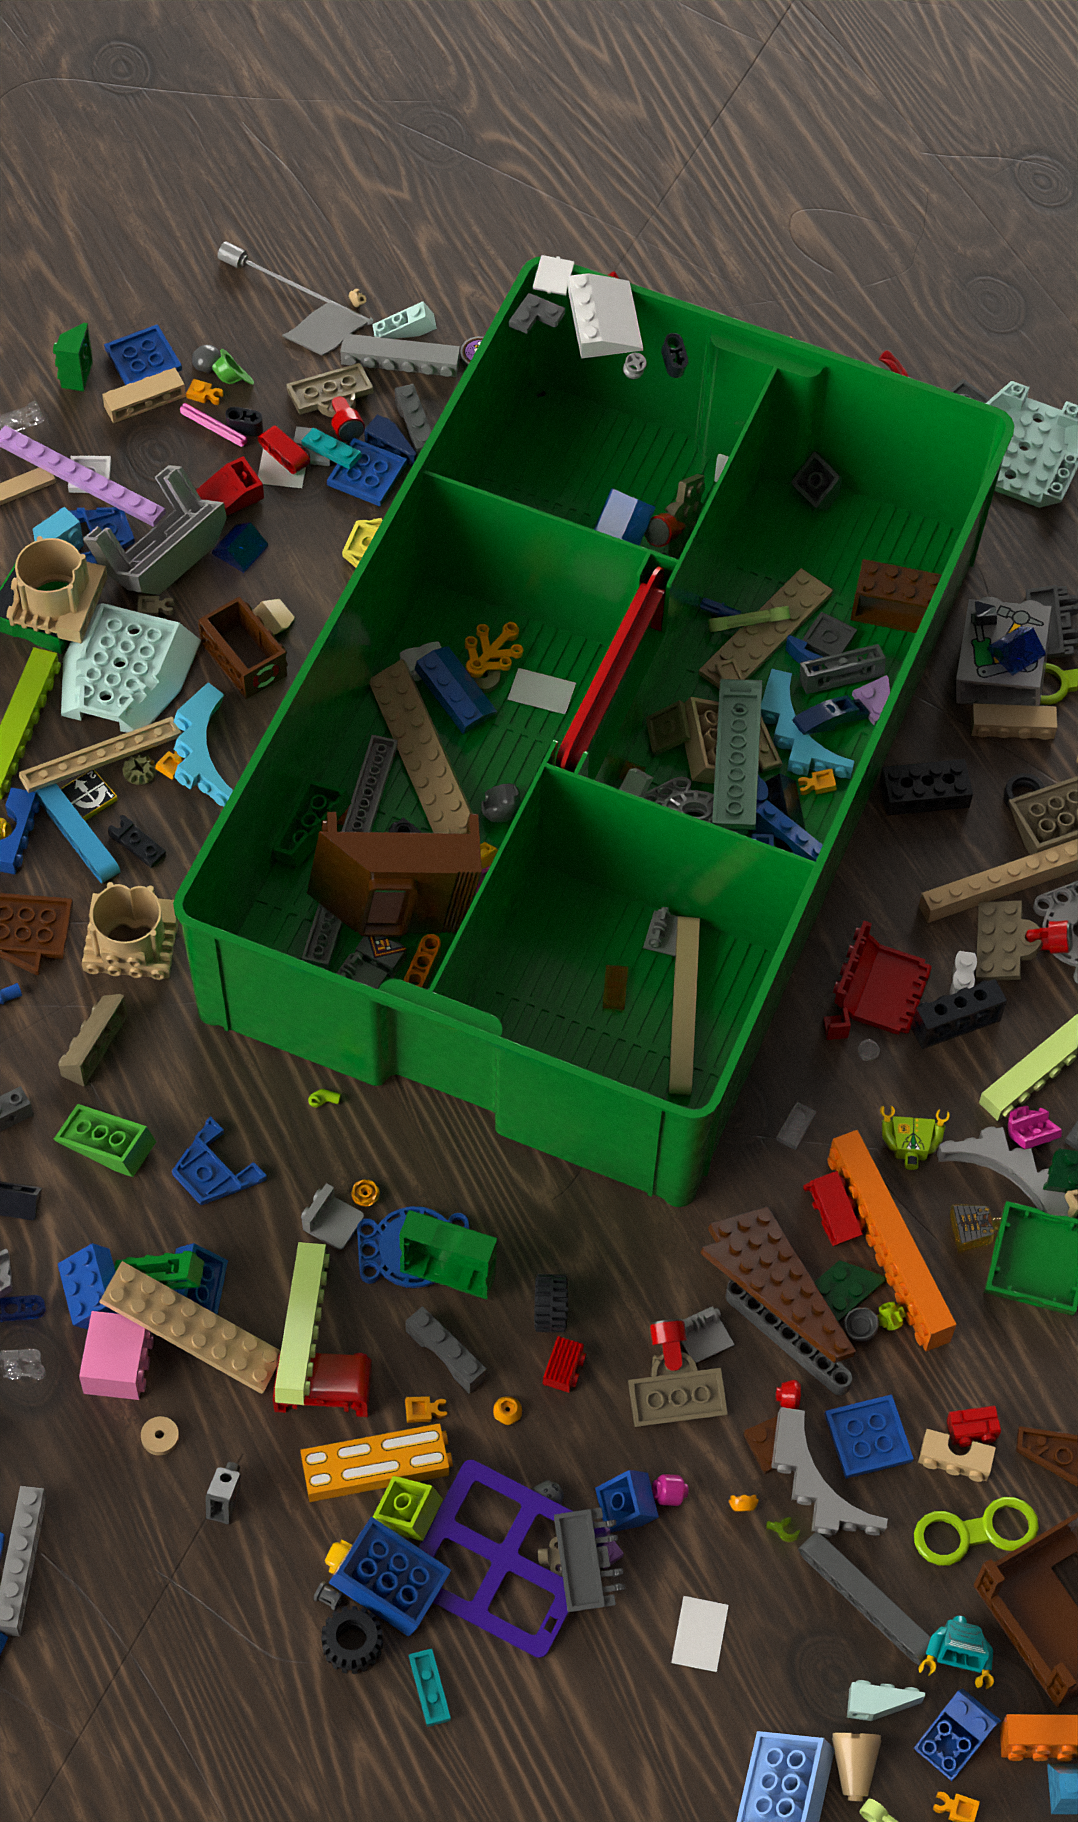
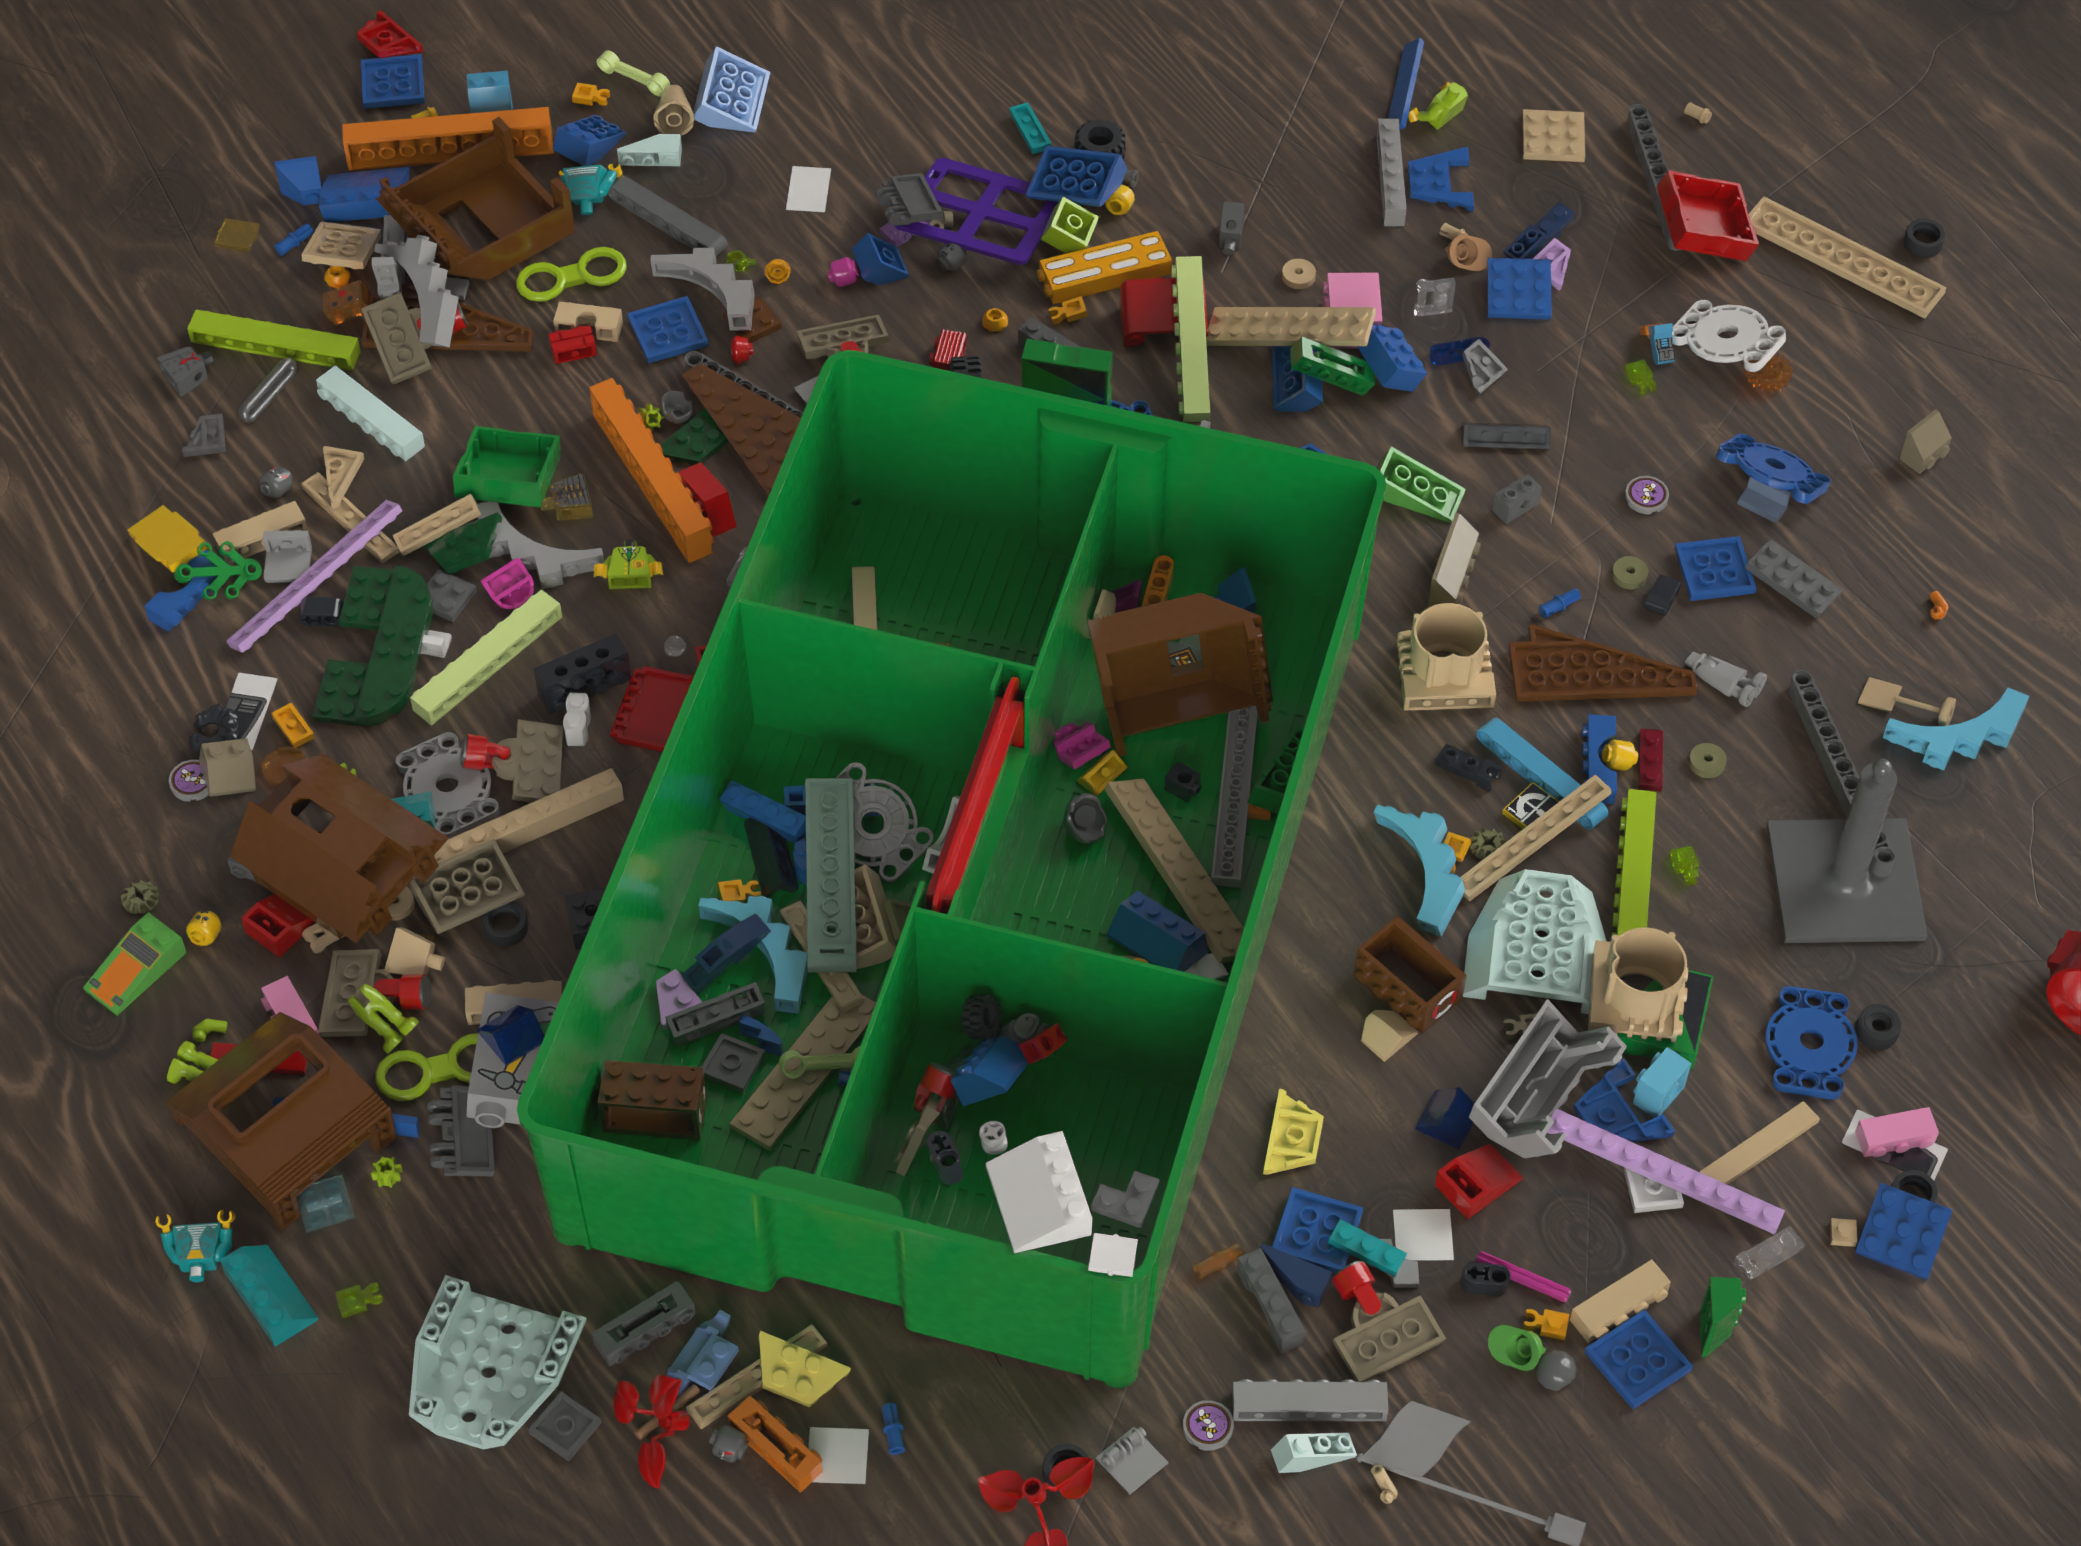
camera: 175 degrees right, 5 degrees down
(284, 449) = (1426, 1245): red beam -> none

